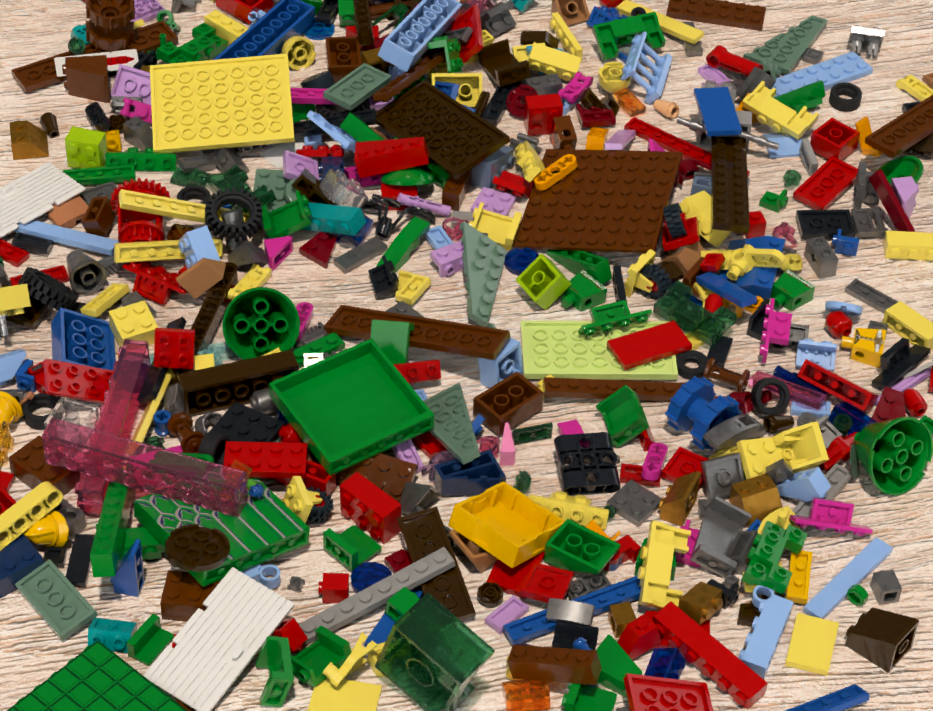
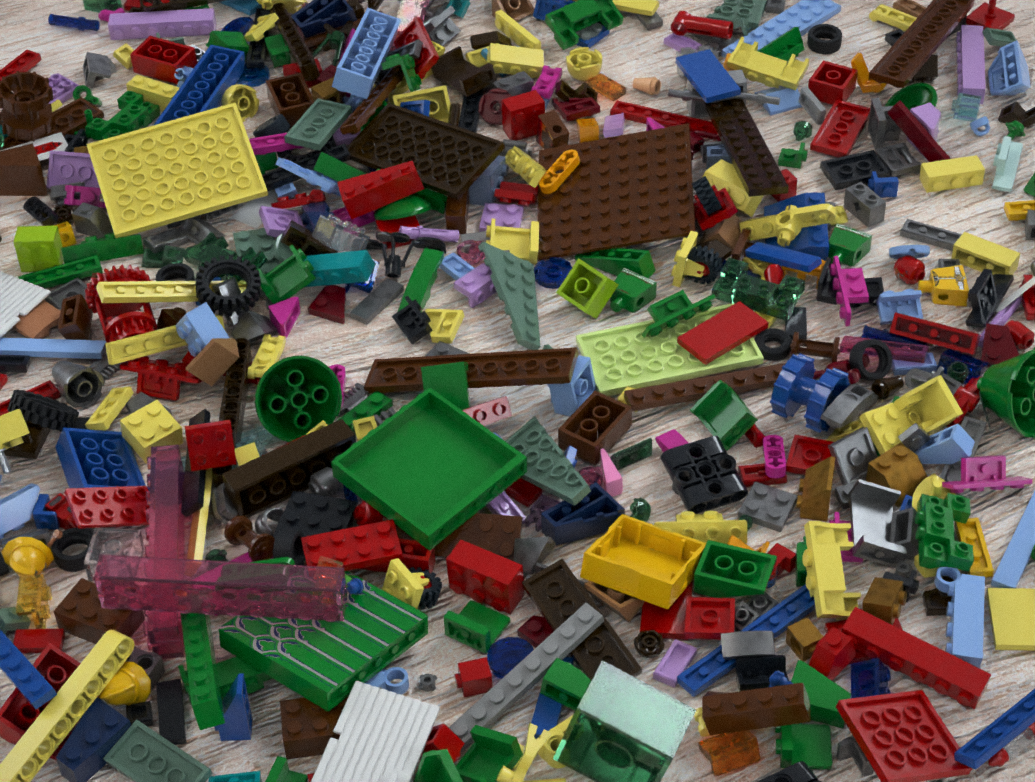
camera: 10 degrees left, 0 degrees up
(161, 419) = (216, 529): blue bush -> none
(197, 548) = (310, 668): dark brown tile -> none
(618, 284) = (665, 276): black tile -> none
(659, 69) = (626, 45): light blue fence -> none
(712, 262) = (757, 231): red plate -> none
(753, 80) = (730, 40): flat silver panel -> none
(786, 231) = (818, 184): clear pink piece -> none

